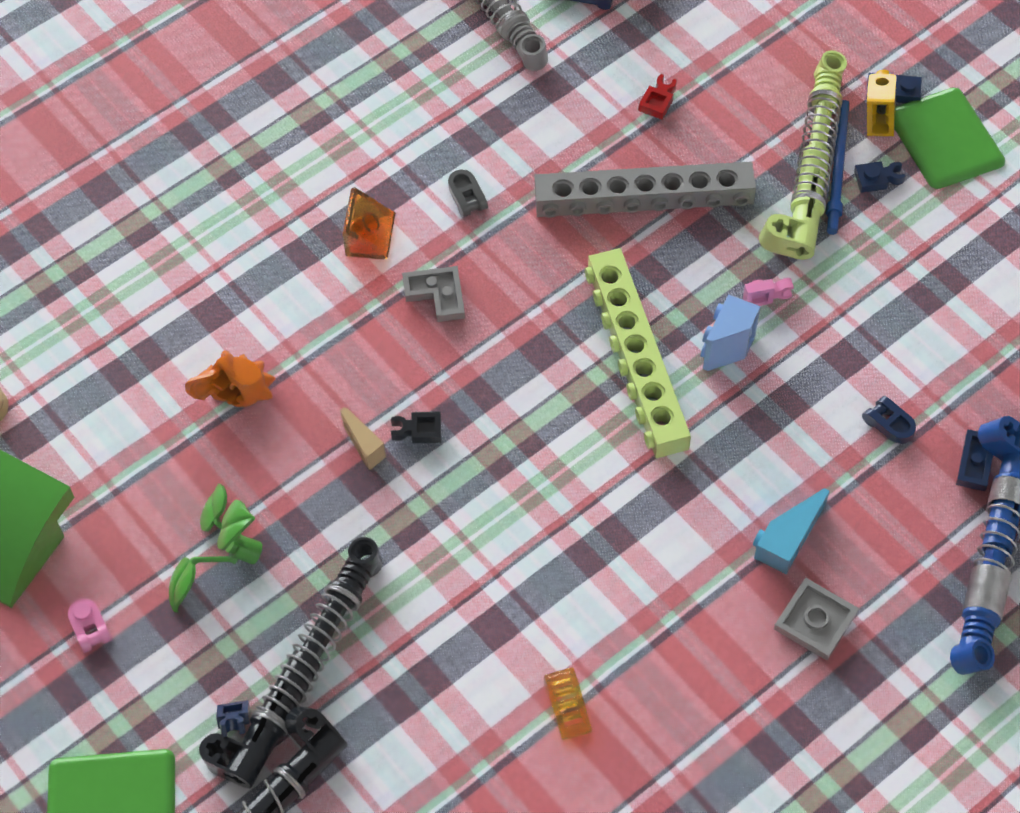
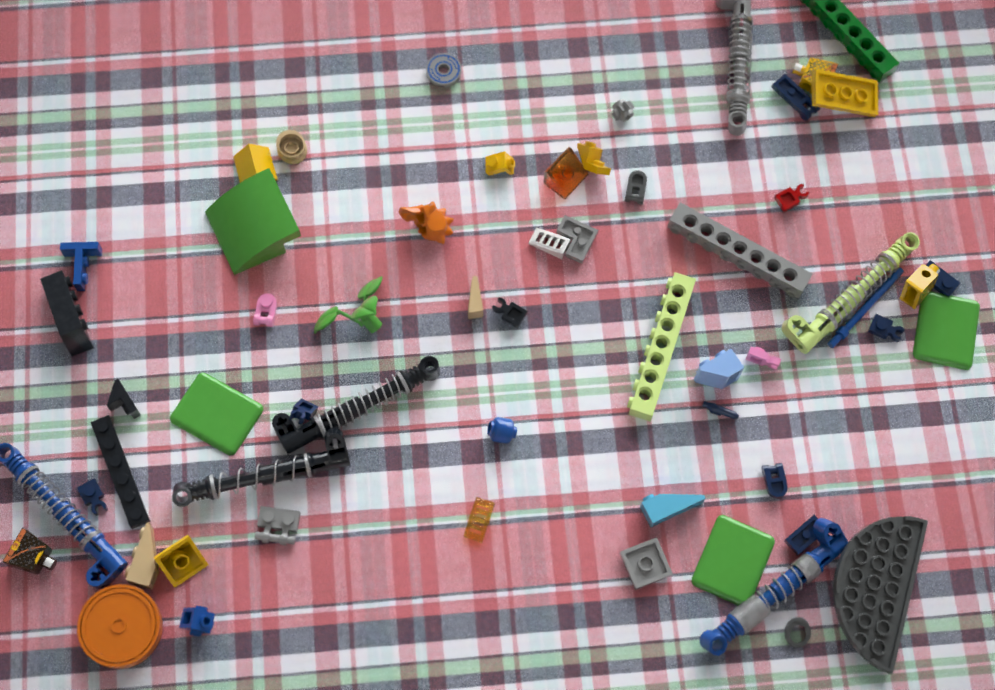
camera: 30 degrees right, 10 degrees up
(118, 186) = (439, 61): none -> light grey tile
(274, 263) = (499, 163): none -> yellow bracket
(384, 115) = (623, 110): none -> light grey gear
(385, 190) = (590, 158): none -> yellow slope
(417, 324) = (559, 253): none -> white slope
(514, 574) = (501, 430): none -> blue head
(761, 384) = (719, 410): none -> dark blue piece
(914, 548) = (733, 560): none -> bright green piece

